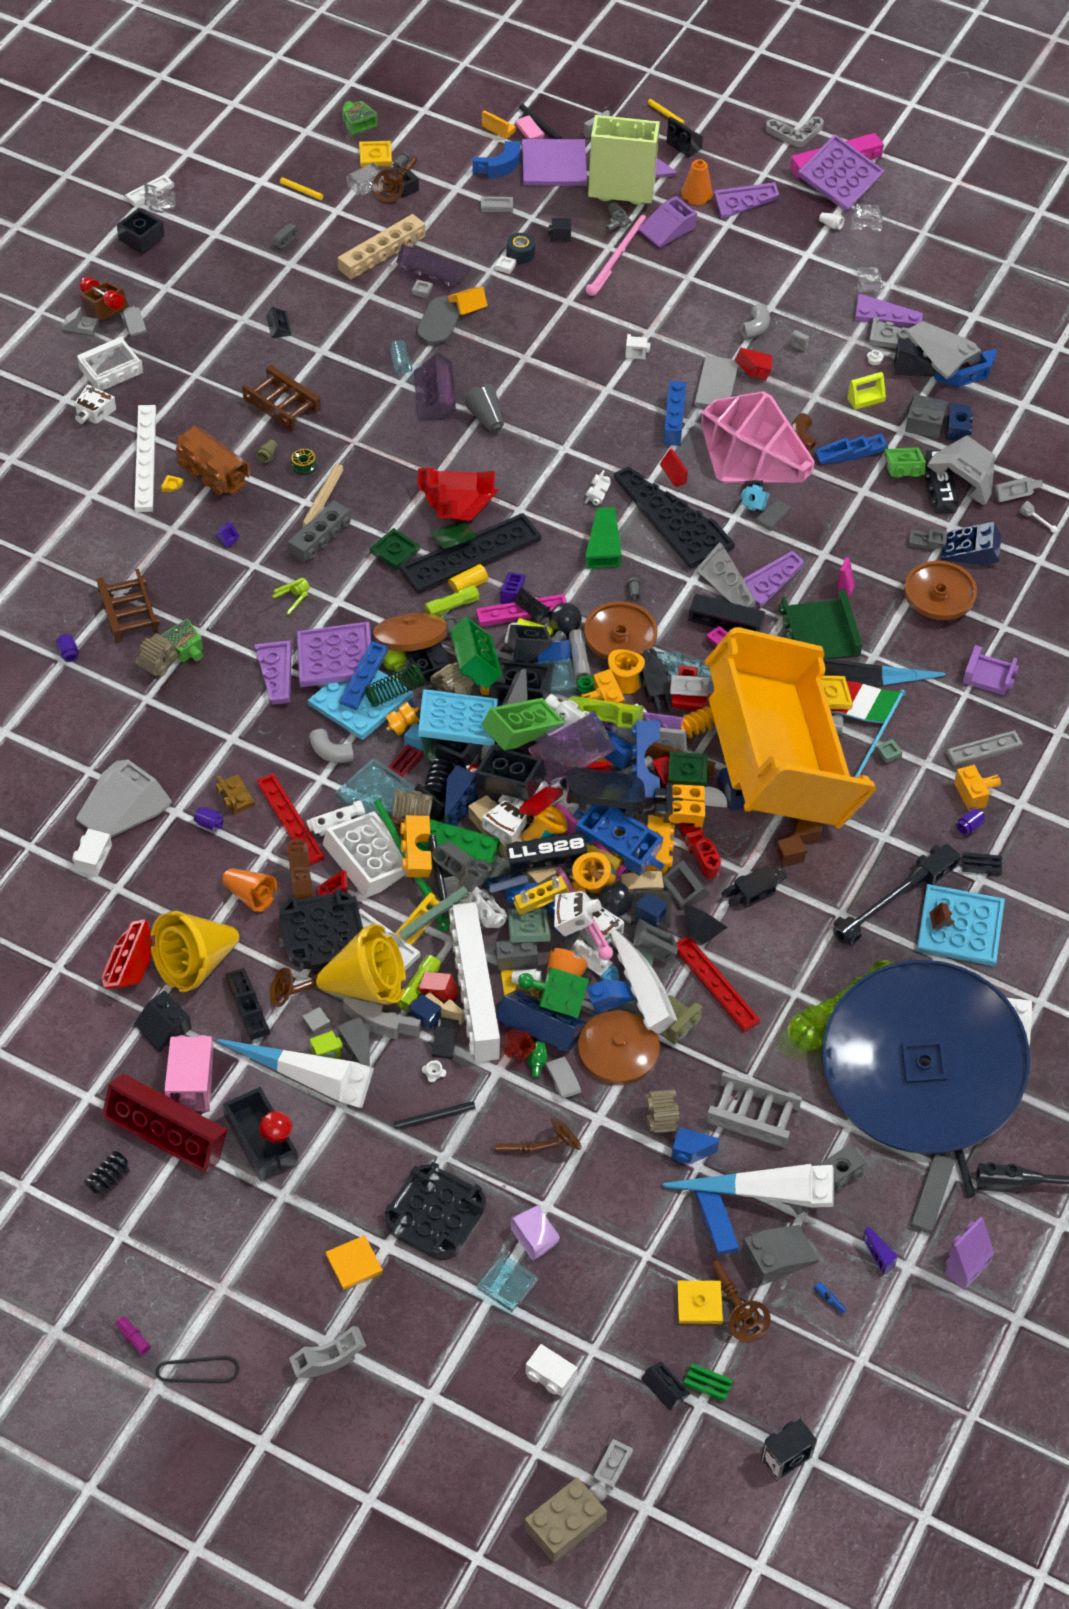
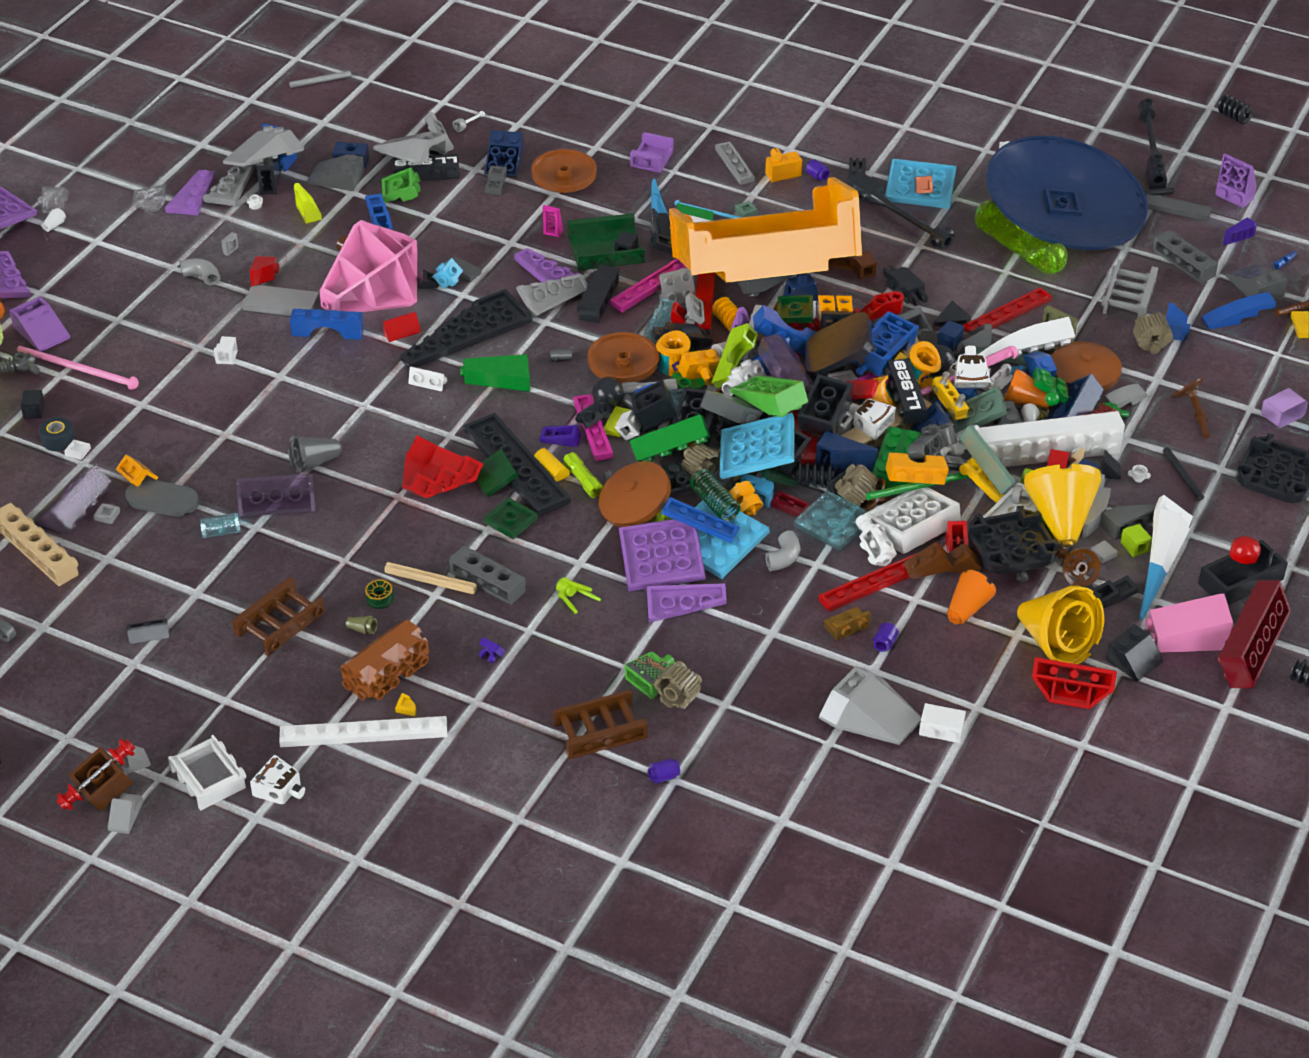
camera: 90 degrees left, 10 degrees down
(796, 1185) = (1203, 262): white plate -> none
(812, 636) = (626, 241): none -> black brick

